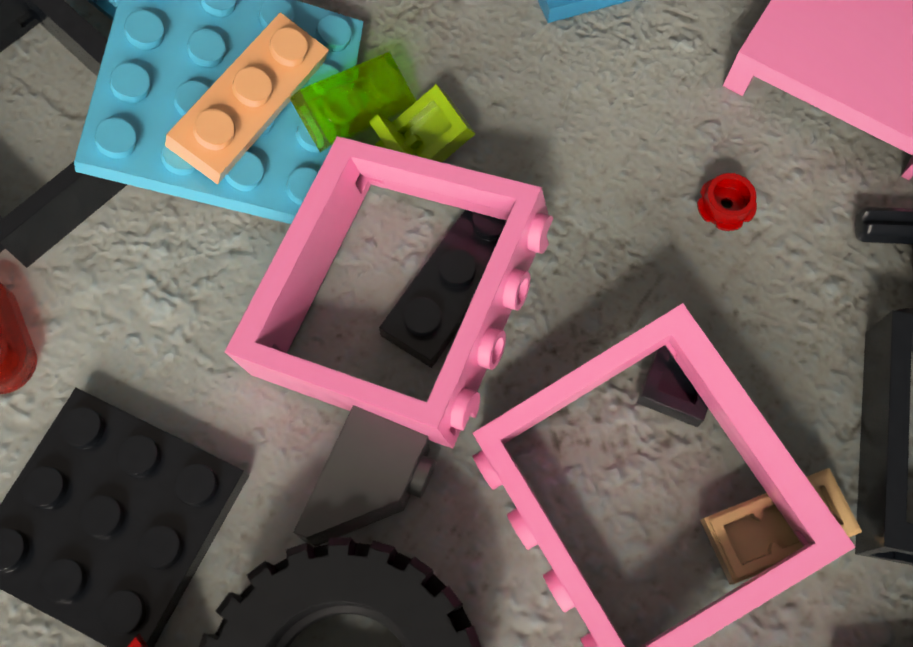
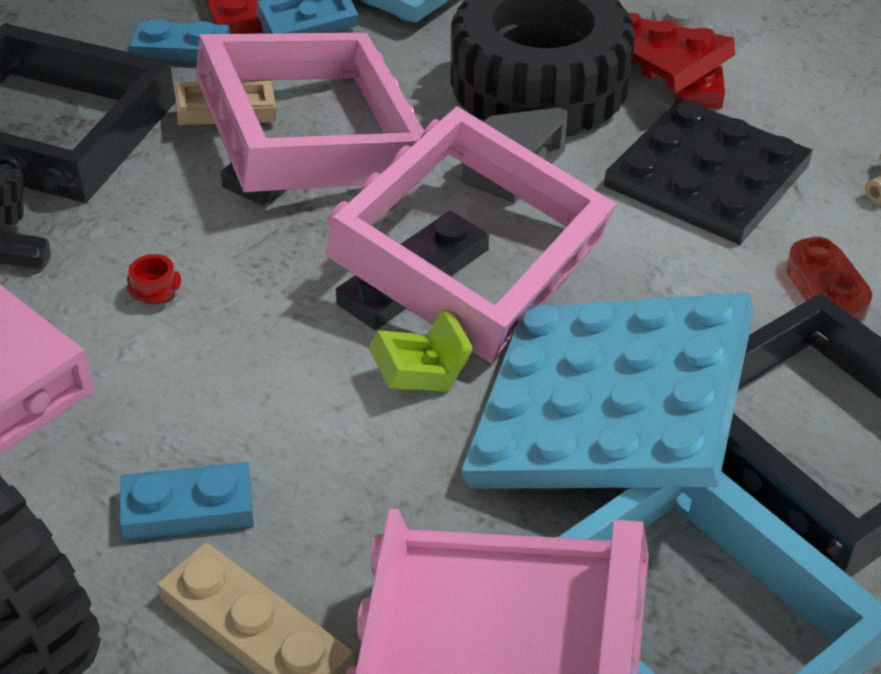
camera: 170 degrees left, 25 degrees down
(246, 98) = (585, 350): light nougat plate -> none
(351, 98) = (479, 380): clear neon green plate -> none

